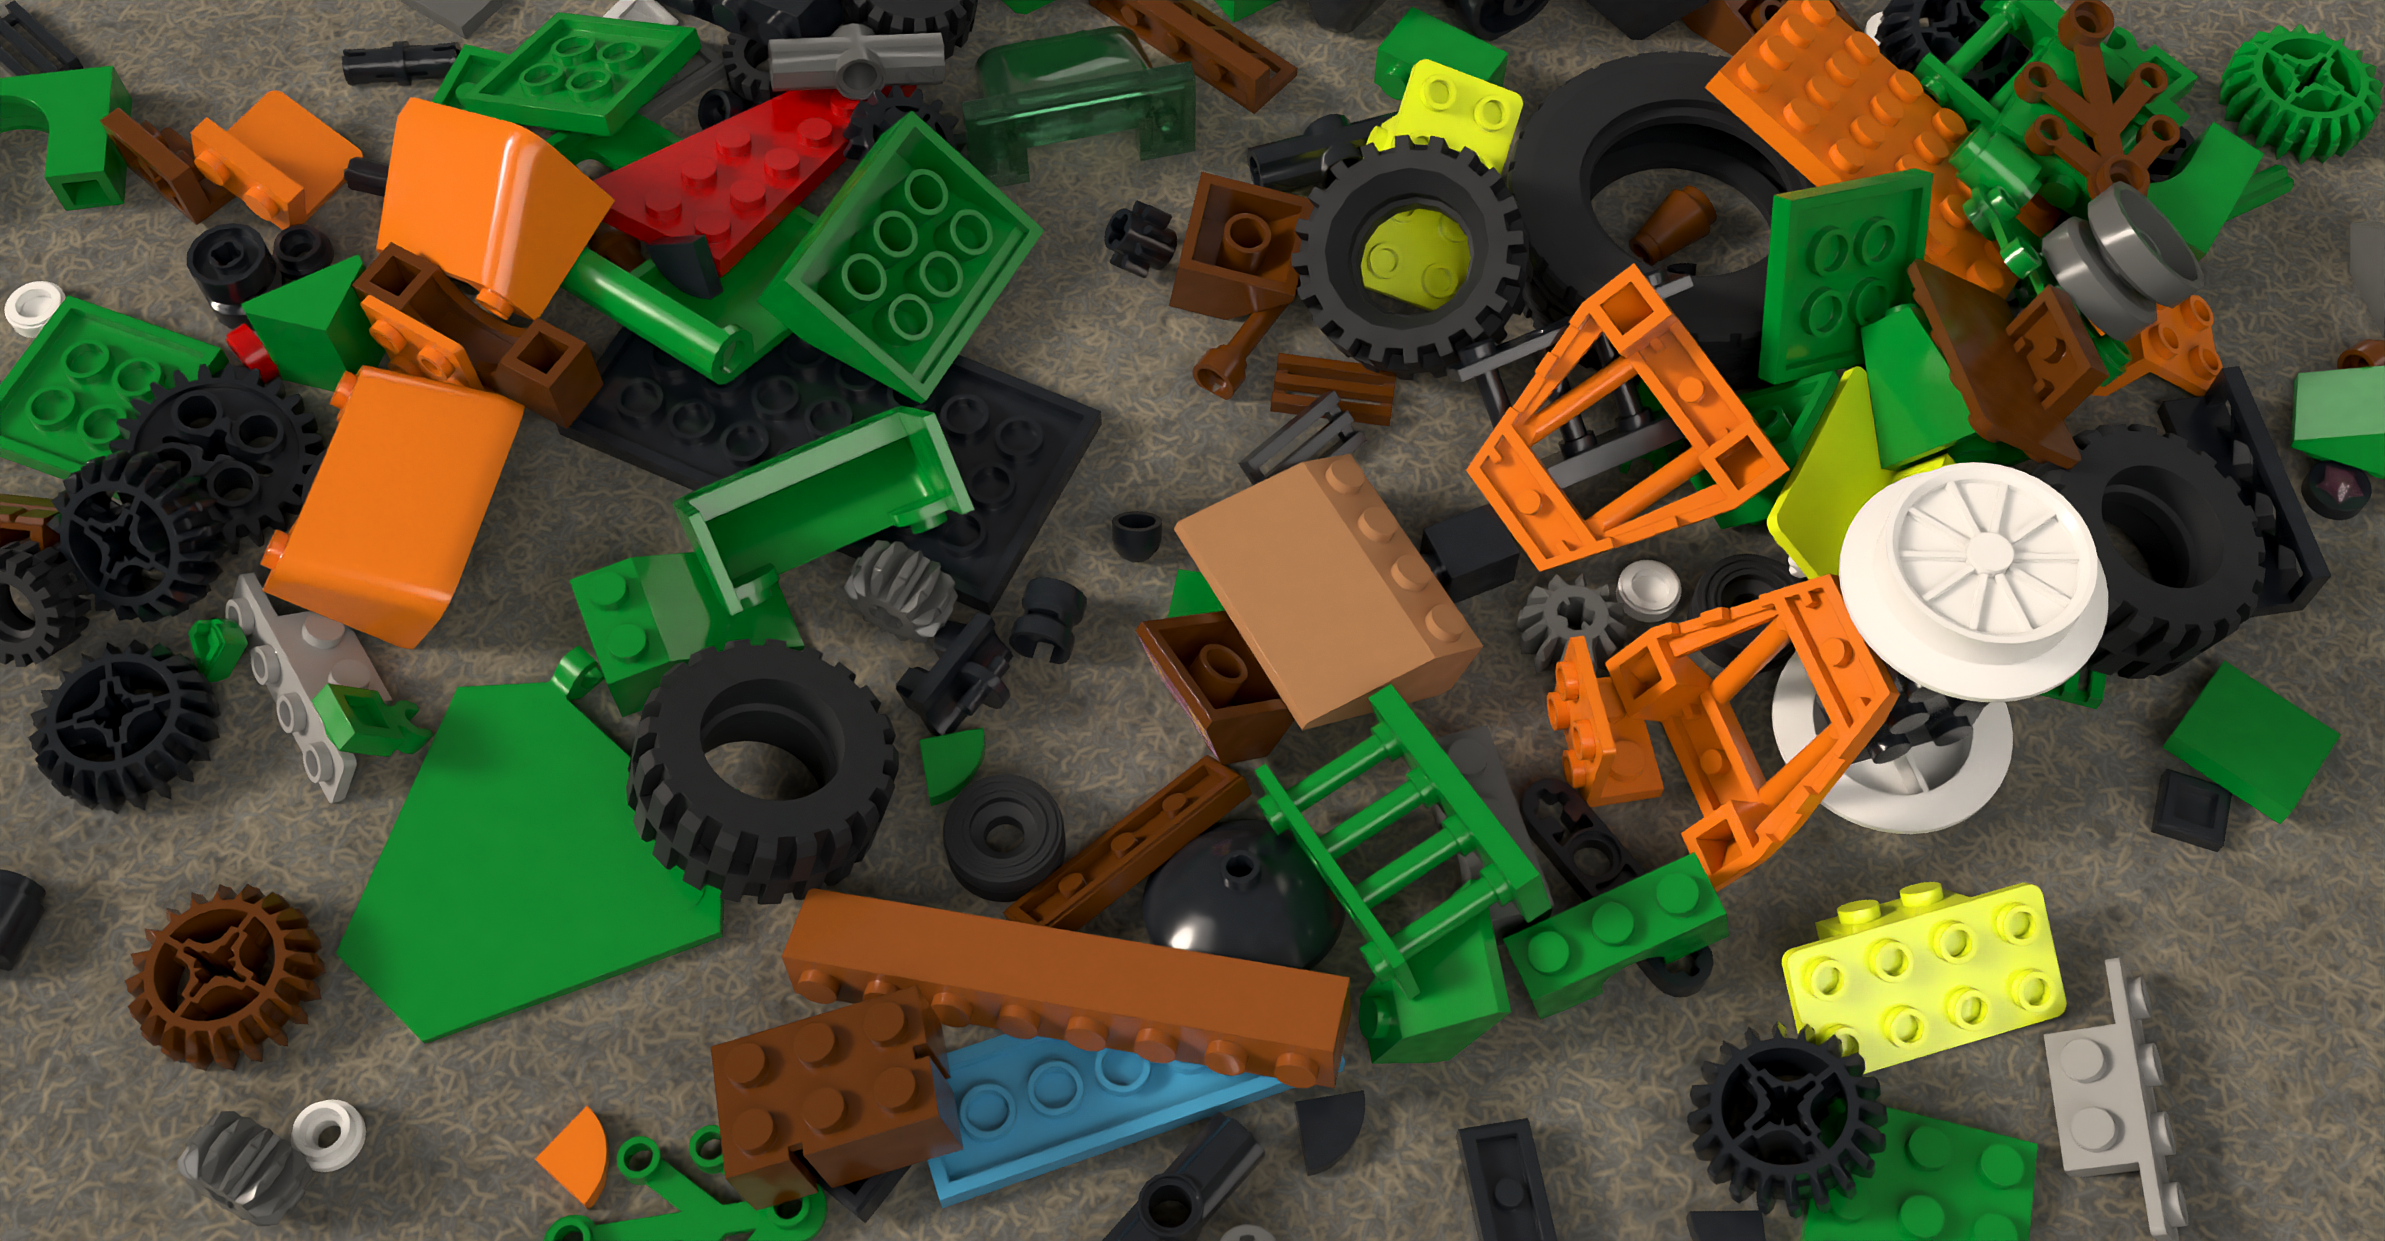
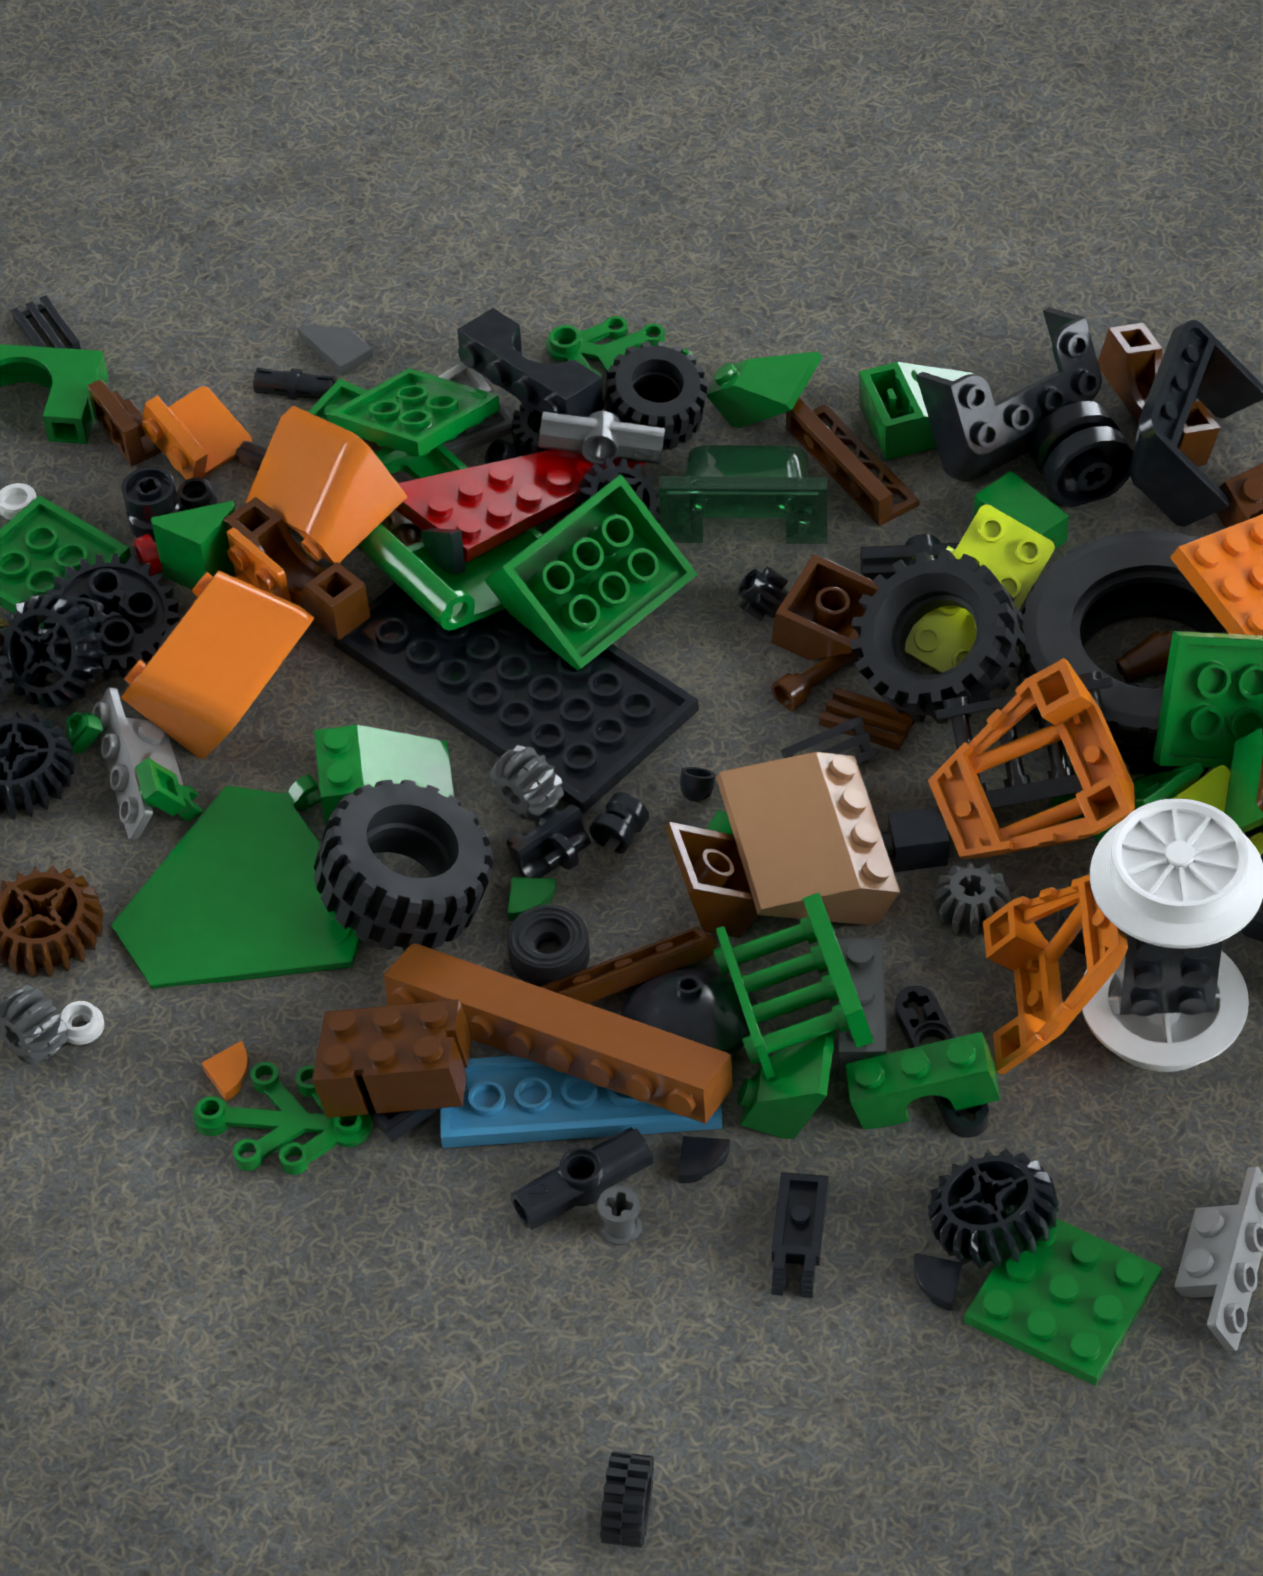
camera: 20 degrees right, 10 degrees down
(819, 500) = (488, 716): green windscreen -> none
(1607, 751) = (963, 974): orange bracket -> none
(1648, 590) = (1034, 880): white tile -> none
(1926, 972) = (1128, 1153): neon yellow bracket -> none

